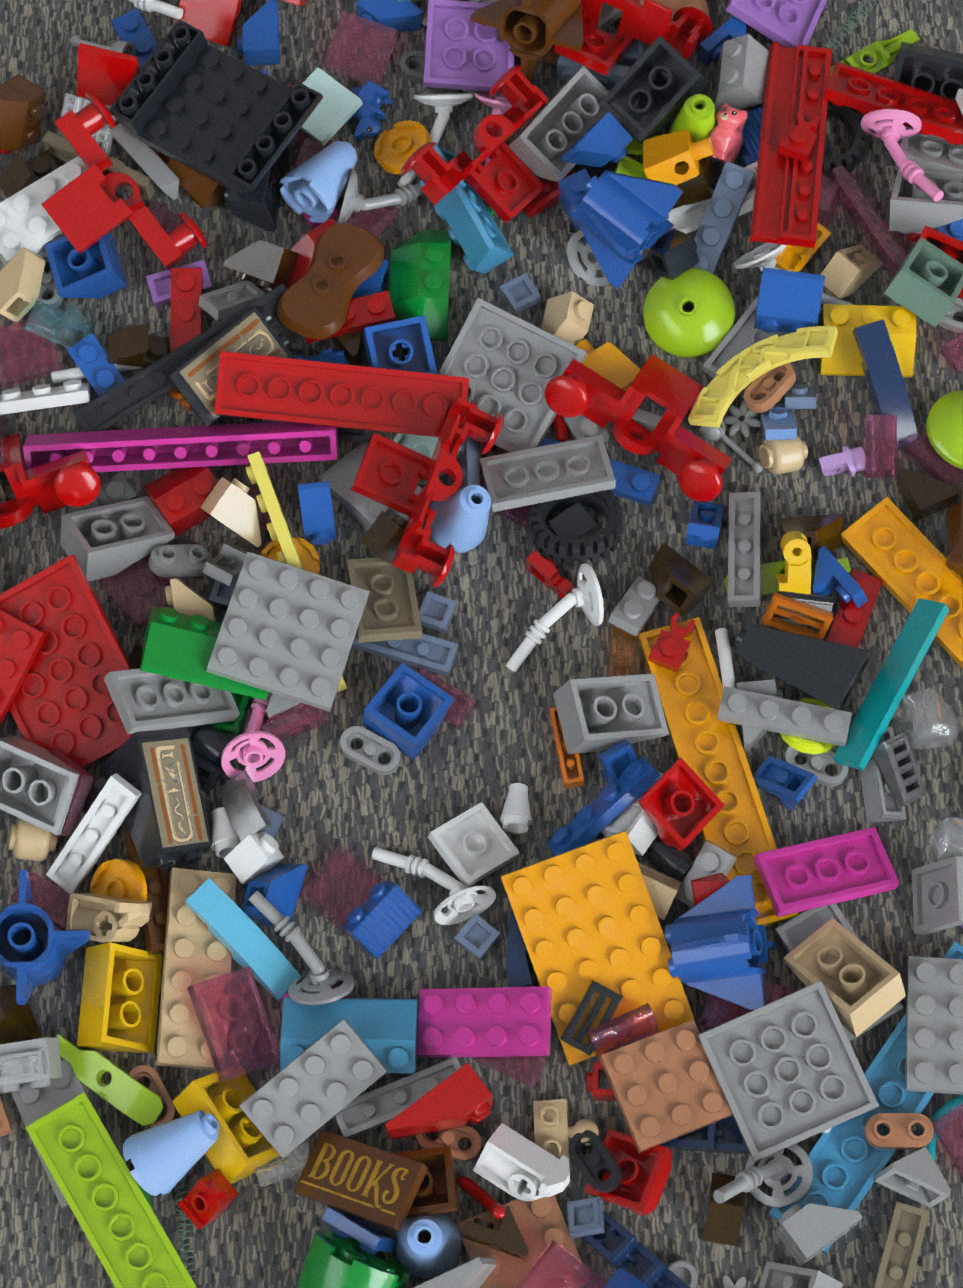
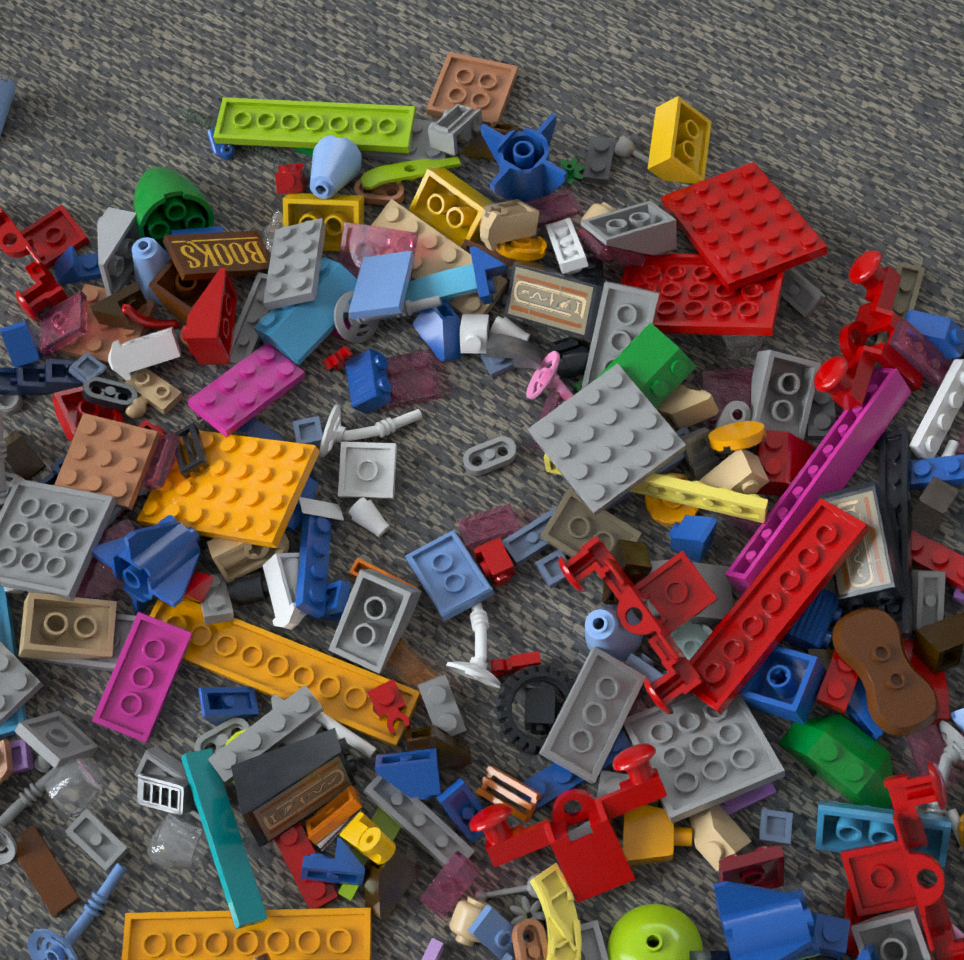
camera: 135 degrees right, 5 degrees down
(182, 884) = (484, 268): none -> blue slope
(197, 529) = (737, 435): none -> light orange tile
(276, 970) = (382, 285): none -> medium blue tile
(379, 969) = (337, 359): none -> red plate
(407, 710) = (493, 489): blue slope -> none
(471, 663) = (495, 562): none -> red brick
(515, 693) = (449, 575): none -> medium blue tile
(541, 849) = (321, 508): none -> white sticker
(567, 274) = (759, 868): none -> dark red plate
(667, 500) = (489, 783): none -> orange tile
(680, 805) = (264, 604): red slope -> none
(714, 572) = (411, 772): none -> blue slope
(771, 487) = (449, 884): none -> clear pink plate

